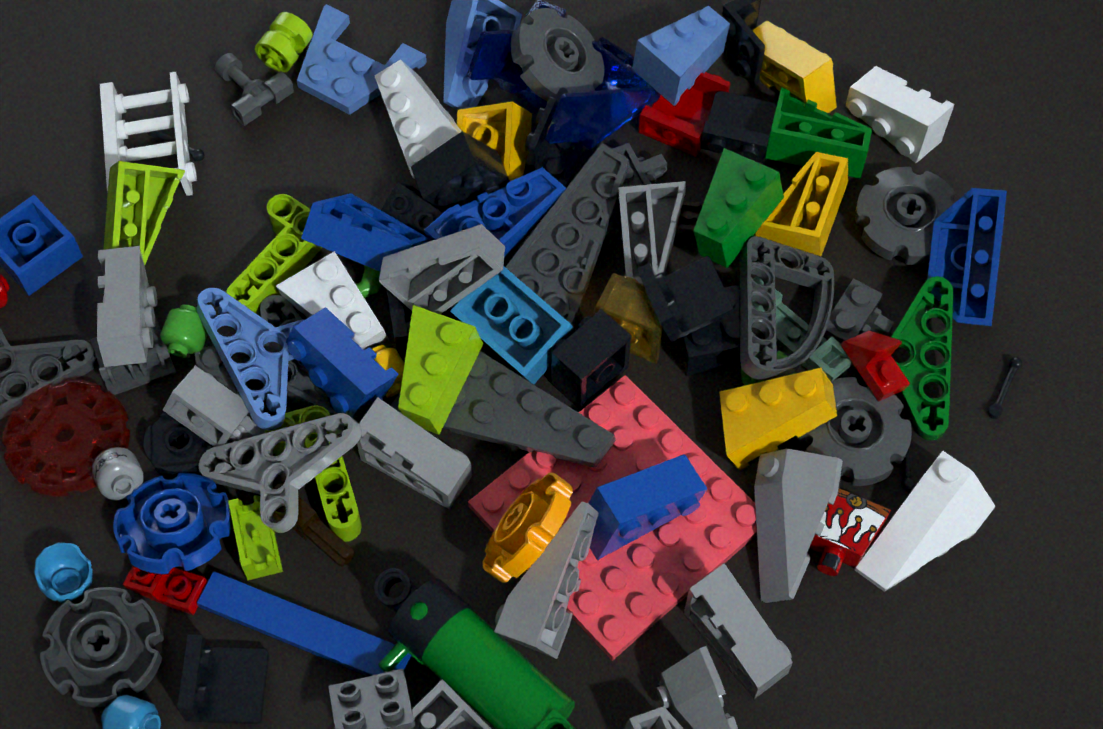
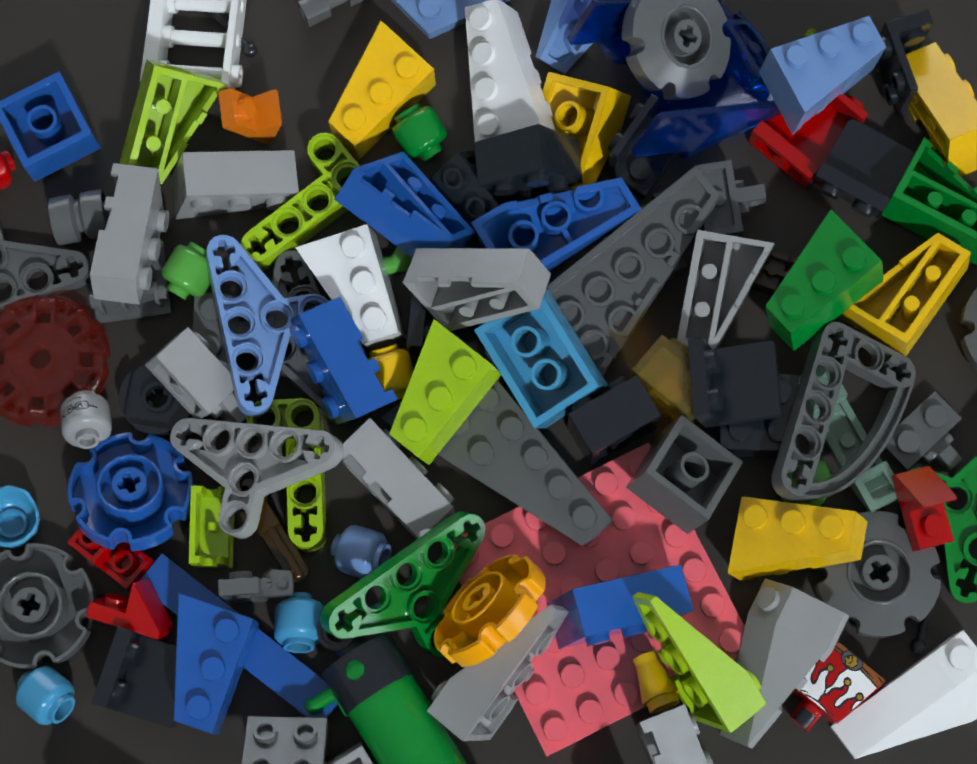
camera: 20 degrees right, 15 degrees up
(74, 310) = (75, 217): none -> dark grey wheel
(204, 252) = (232, 182): none -> light grey wedge
(205, 621) = (140, 613): none -> red slope
(214, 196) = (251, 116): none -> orange slope
(281, 647) = (208, 661): none -> blue wedge
(301, 575) = (246, 588): none -> dark grey hinge
(320, 154) = (382, 87): none -> yellow wedge
(355, 598) = (297, 623): none -> dark azure head
(360, 178) = (419, 132): none -> green head
(397, 524) = (360, 550): none -> medium blue head
(441, 546) = (428, 579): none -> green beam
(665, 384) = (684, 474): none -> dark grey brick
(690, 561) = (655, 684): none -> yellow cone
(725, 528) = (708, 679): none -> lime wedge

